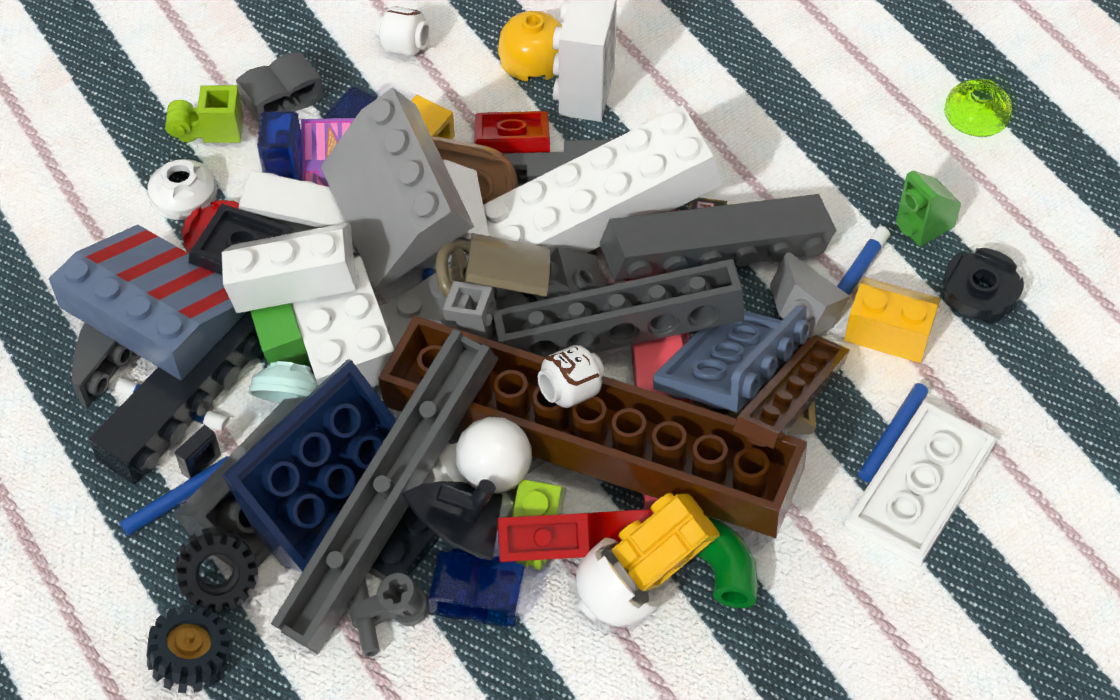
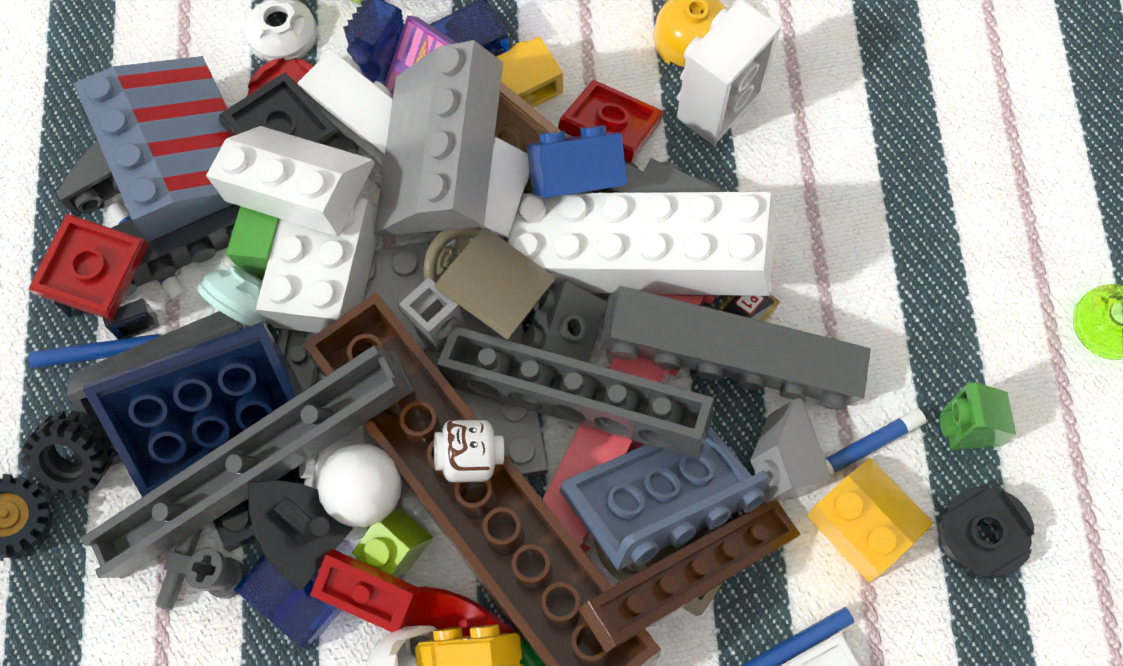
camera: 30 degrees right, 15 degrees up
(142, 420) = (89, 266): none -> red tile
(514, 158) = (576, 163): none -> blue brick

